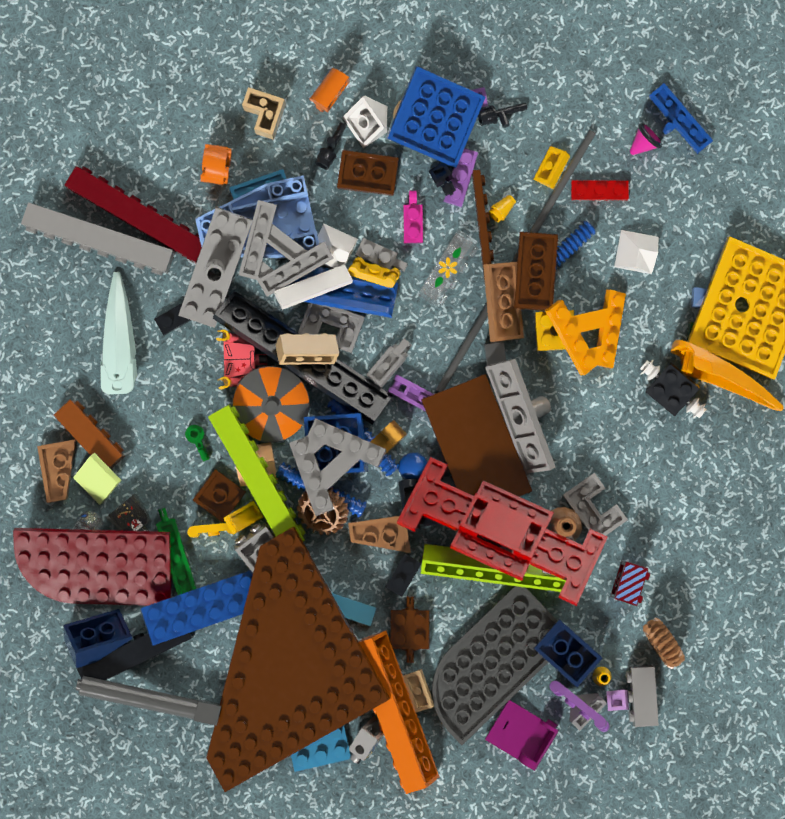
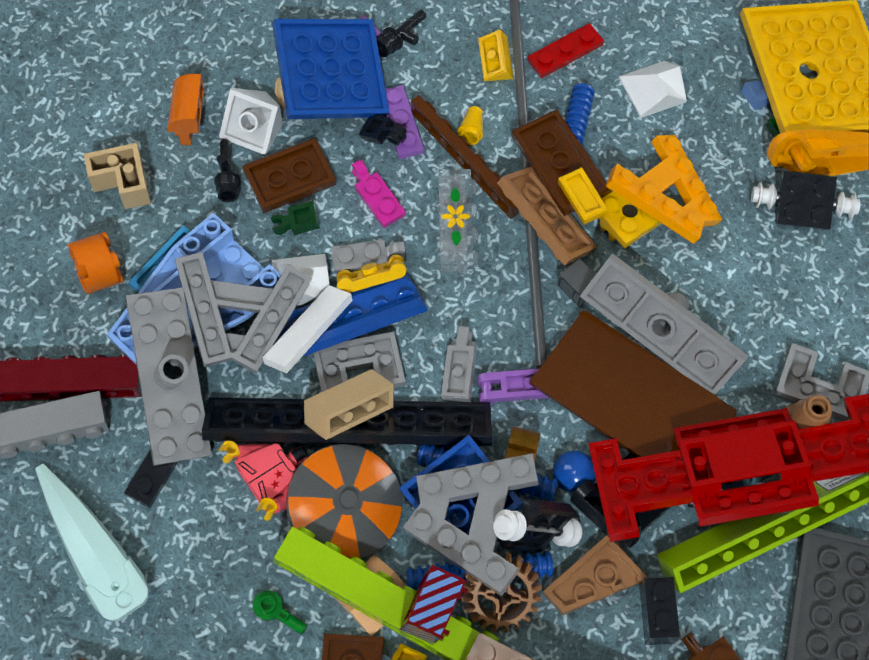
camera: 40 degrees left, 20 degrees down
(275, 498) = (433, 605): none -> container
(356, 207) = (300, 219): none -> dark green plate
(364, 489) = (537, 526): none -> plate
(530, 304) = (582, 196): none -> yellow tile

